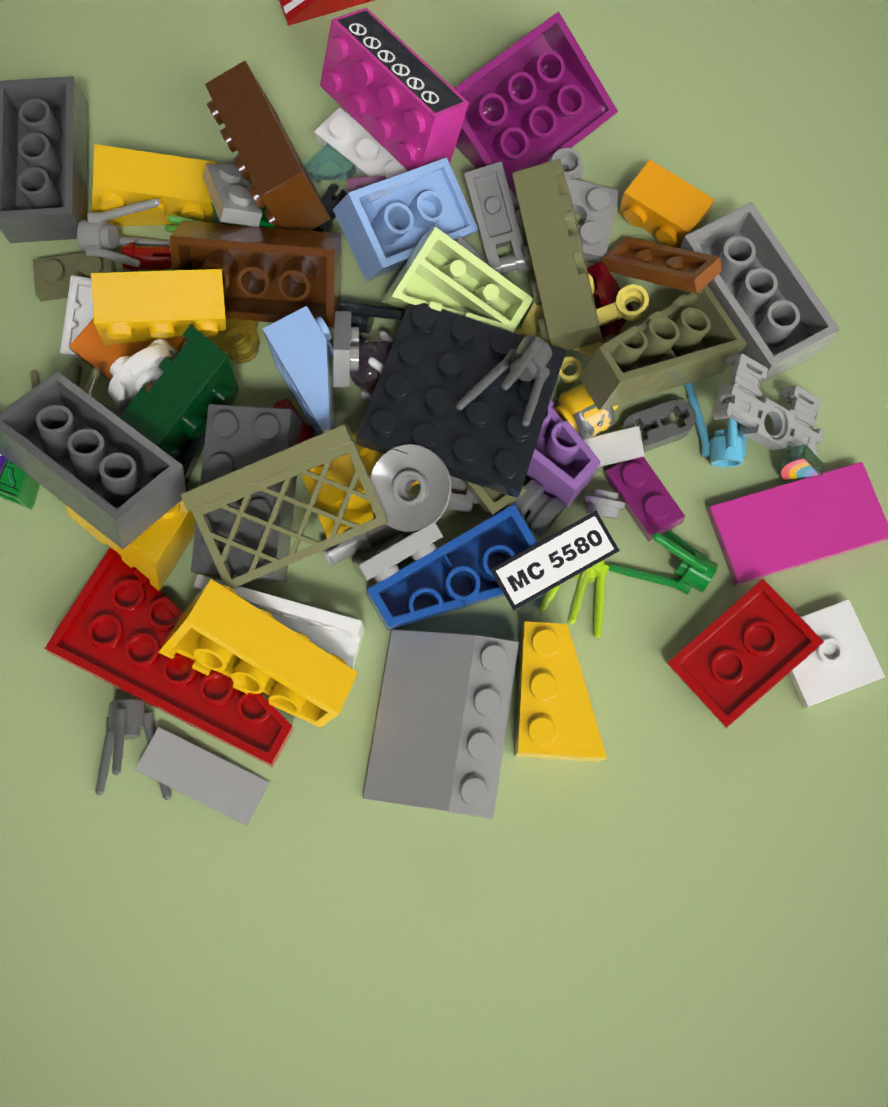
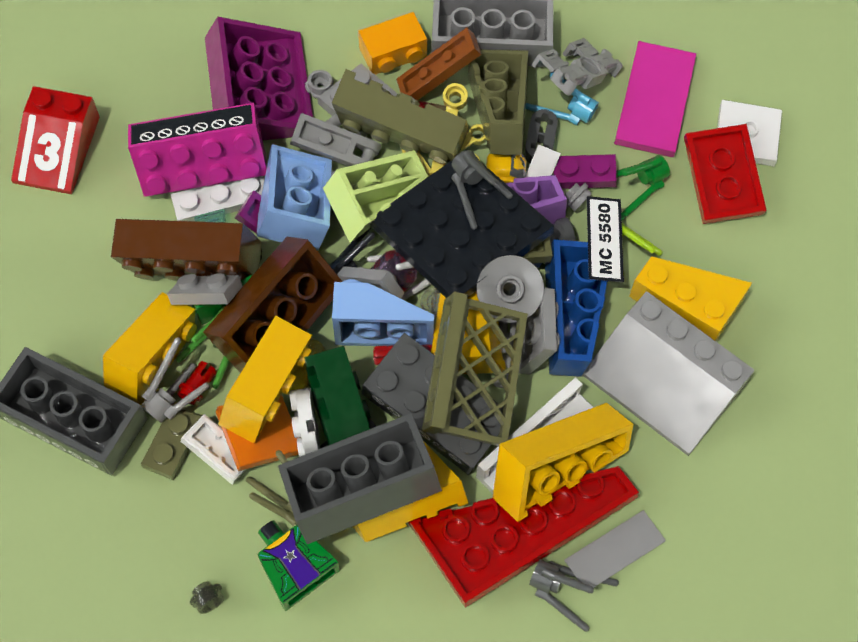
camera: 60 degrees left, 10 degrees down
(800, 464) = (622, 71): tile -> none

